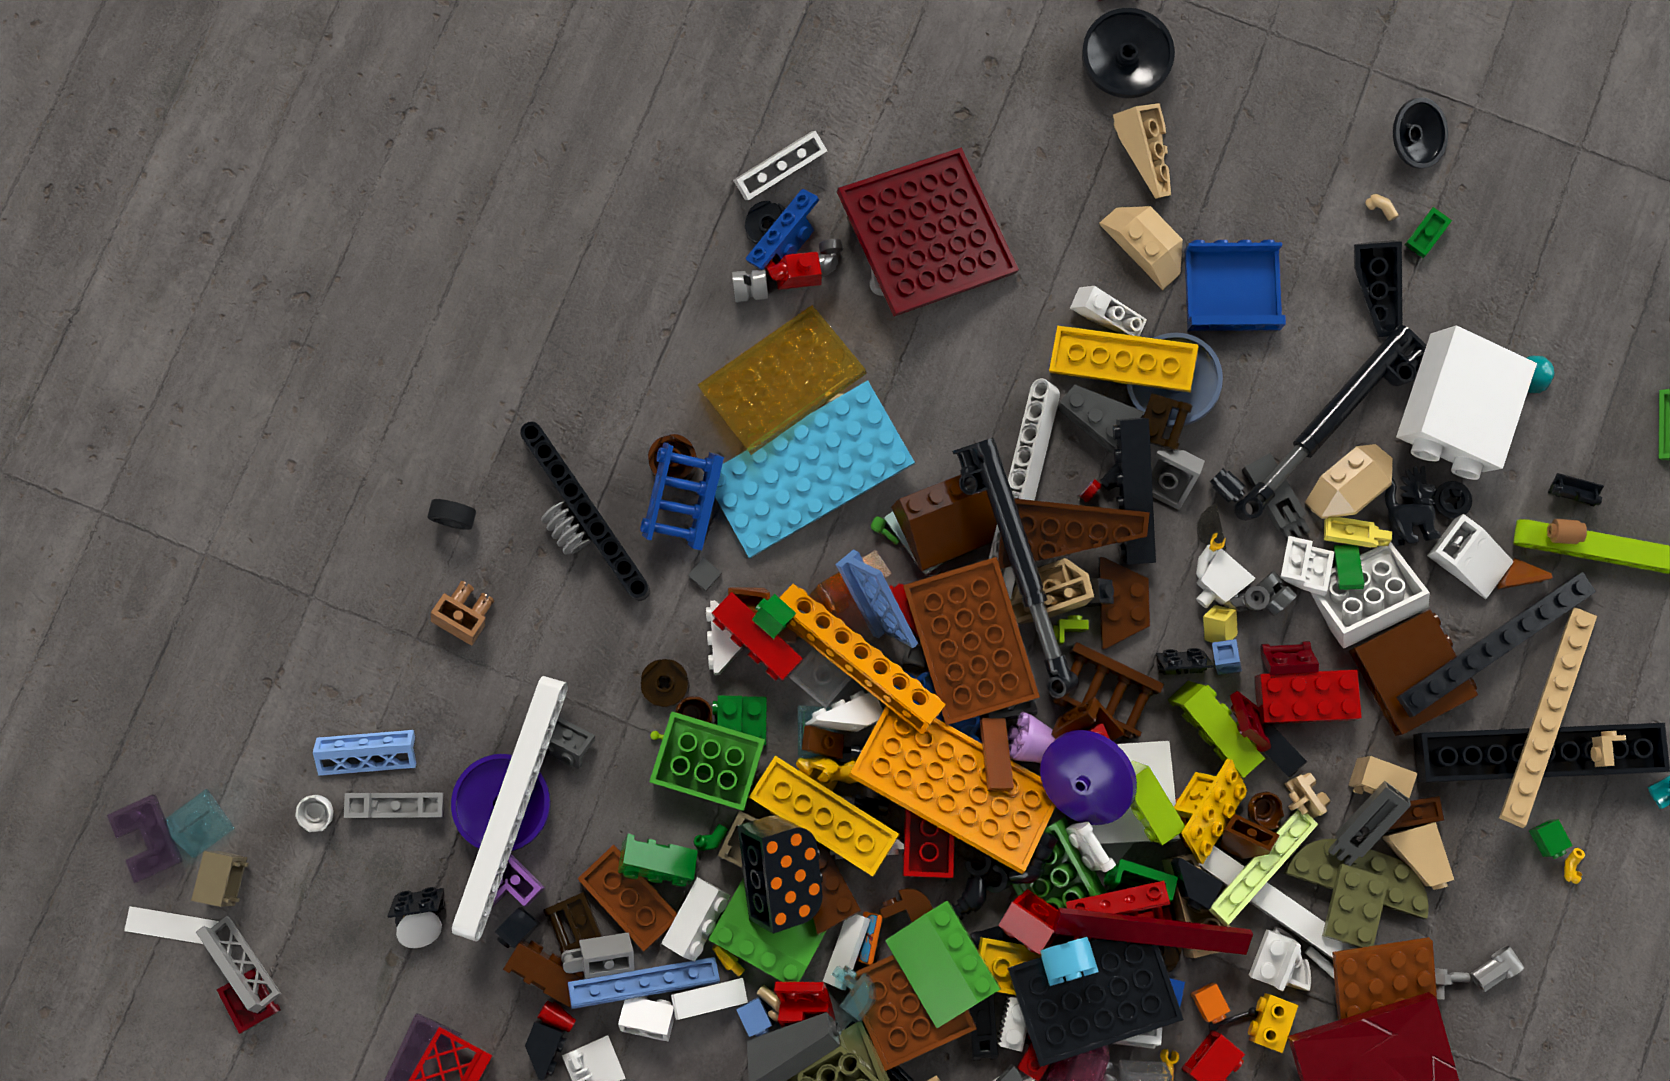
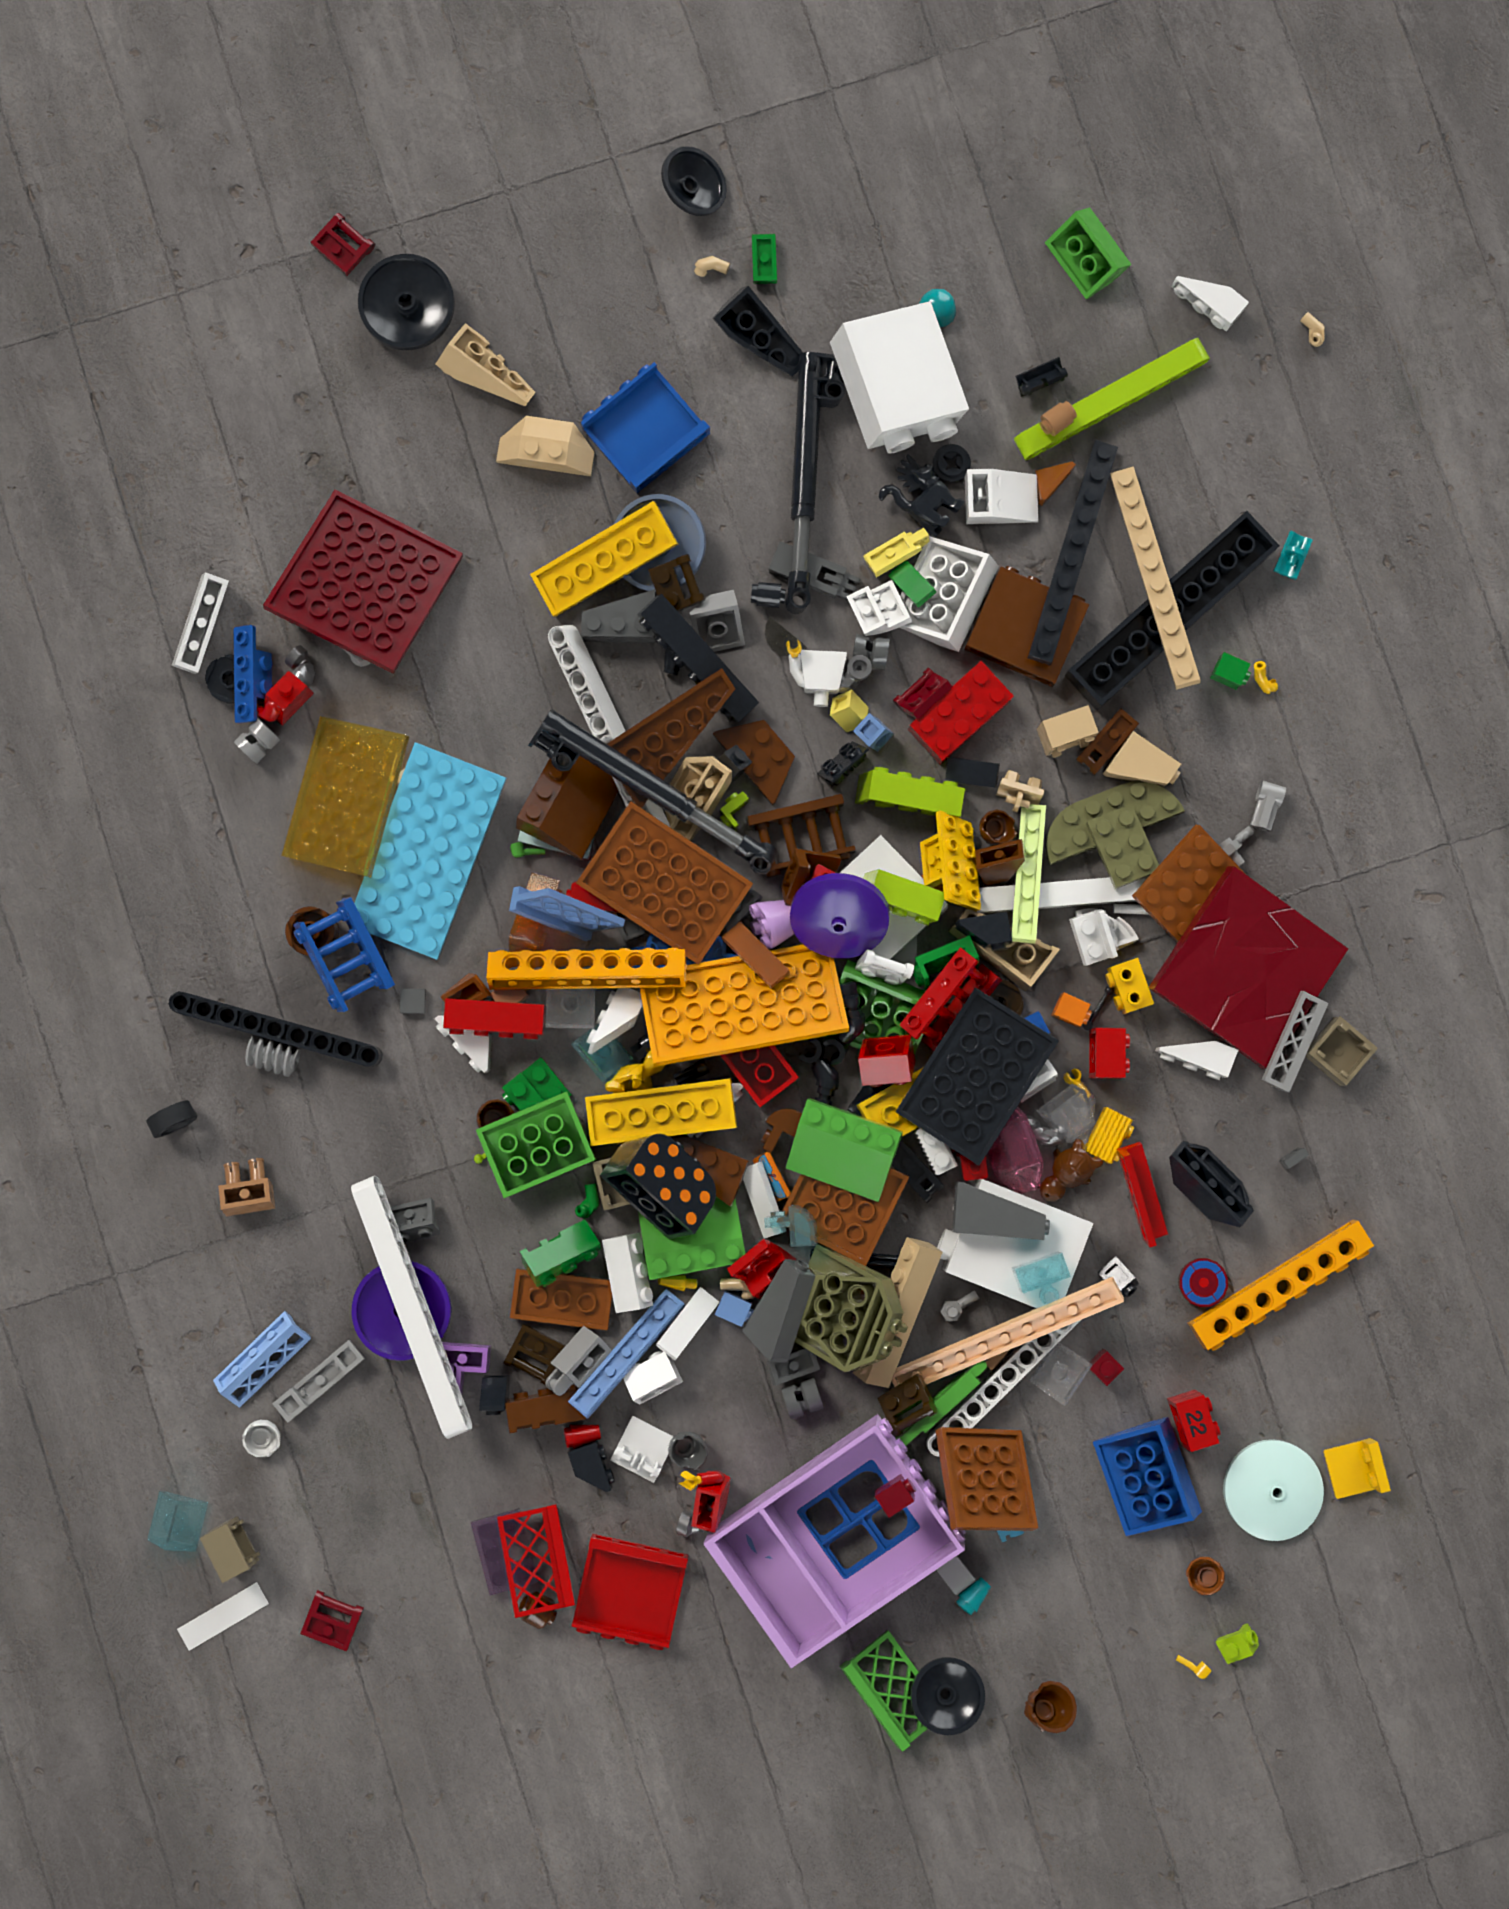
camera: 40 degrees left, 5 degrees up
(149, 818) = (134, 1550): clear purple plate -> none
(230, 968) = (299, 1609): light grey fence -> none
(417, 902) = (395, 1445): black hinge -> none
(418, 929) = (416, 1456): white piece -> none
(678, 684) = (443, 1100): dark brown plate -> none
(773, 615) = (493, 990): green brick -> none
(823, 742) = (614, 1056): reddish brown plate -> none
(1068, 961) = (936, 1068): medium azure brick -> none
(1090, 490) = (663, 686): red tile -> none
(1107, 311) = (561, 530): white slope -> none
(1152, 931) = (982, 993): dark red tile -> none
(1249, 722) = (929, 769): dark red plate -> none
(1351, 482) = (862, 513): tan wedge -> none
(1377, 814) = (1082, 762): dark grey hinge -> none
(1603, 749) = (1215, 571): tan bracket -> none

